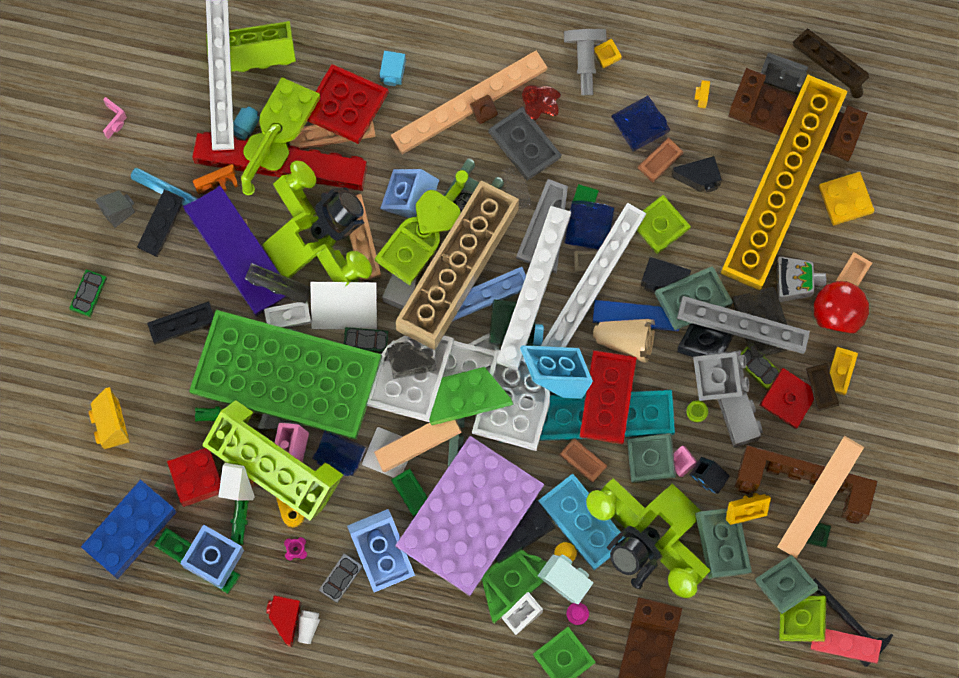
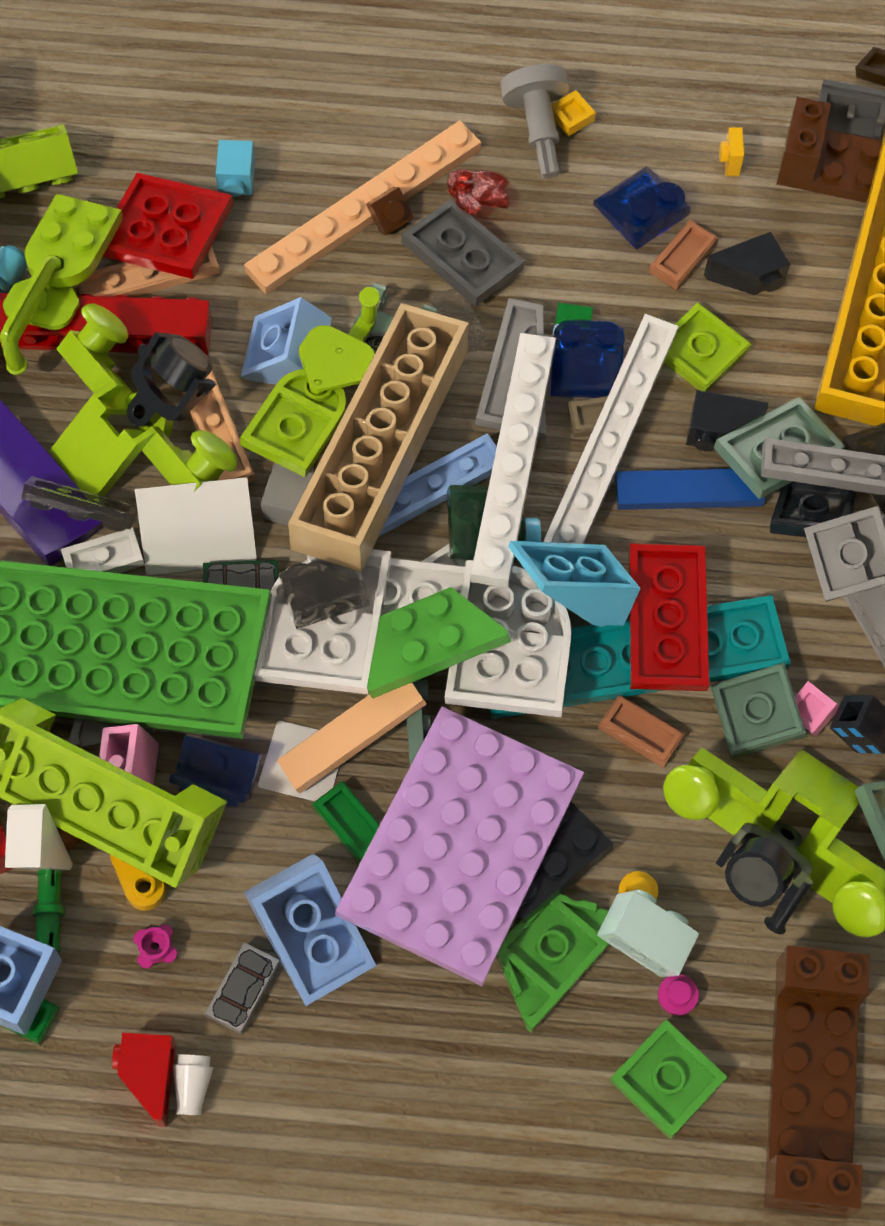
camera: 10 degrees left, 10 degrees down
(522, 613) = (581, 1005): white slope -> none
(570, 513) = (670, 848): medium azure plate -> none
(627, 337) = (680, 518): tan cone -> none
(697, 411) = (819, 626): lime plate -> none

